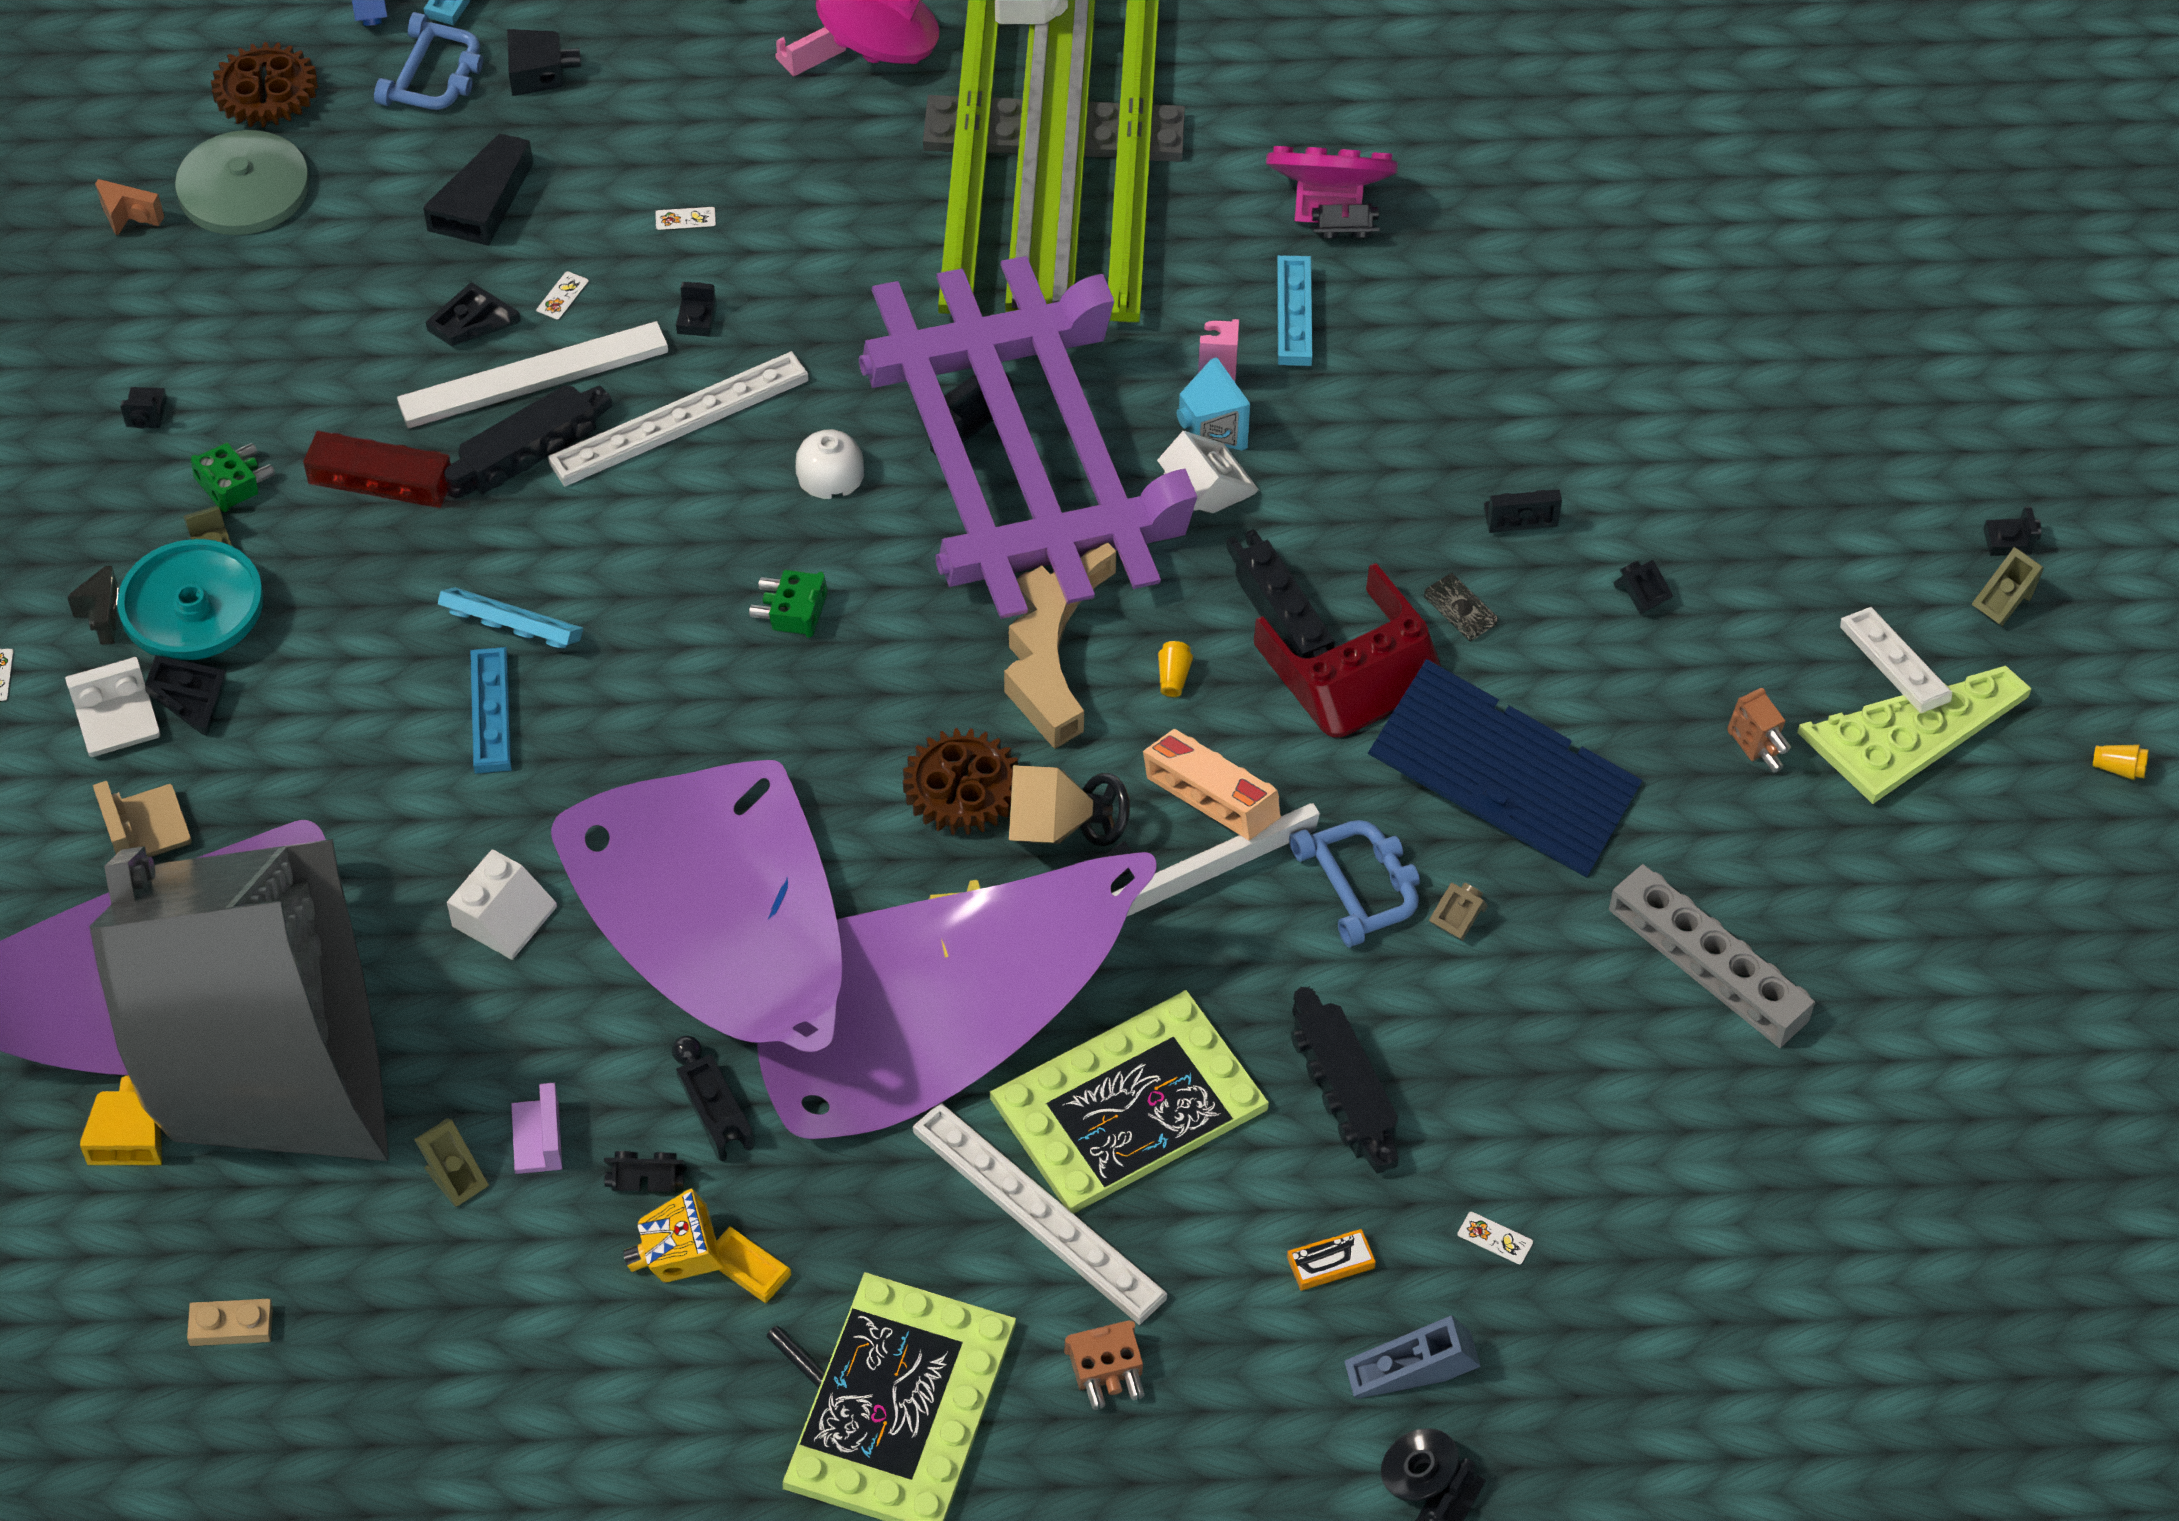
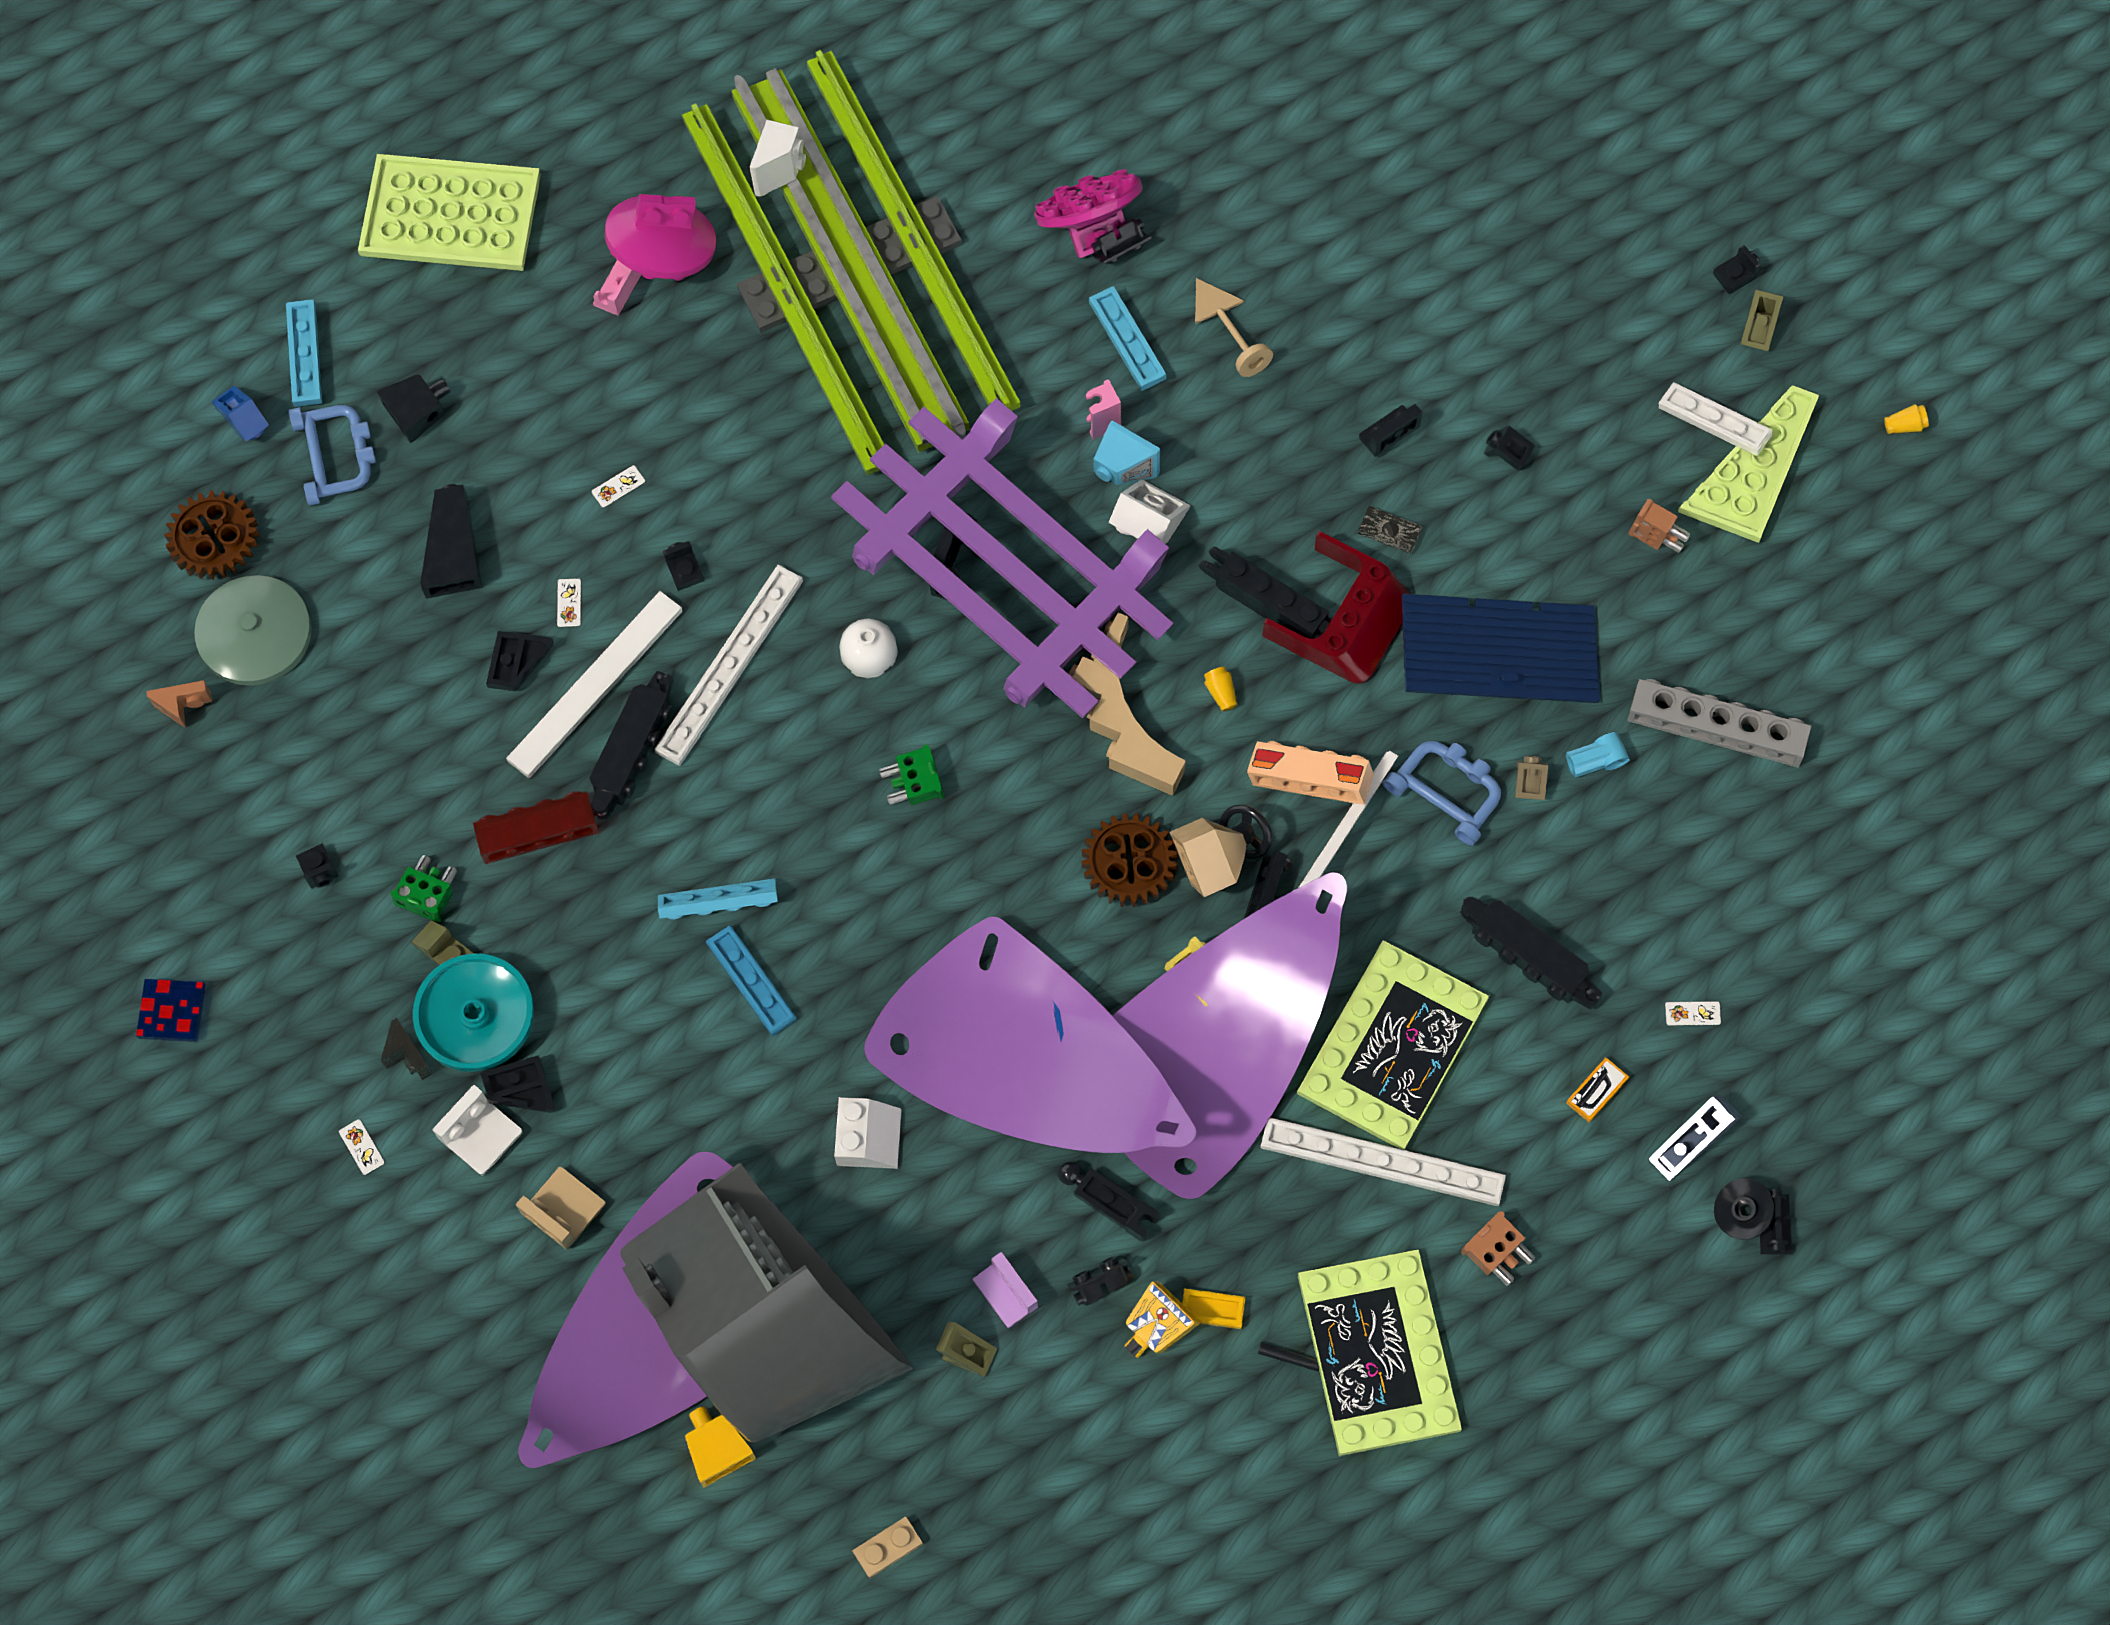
camera: 25 degrees left, 15 degrees up
(1415, 381) = (1215, 301): none -> tan piece
(1560, 924) = (1605, 753): none -> medium azure piece

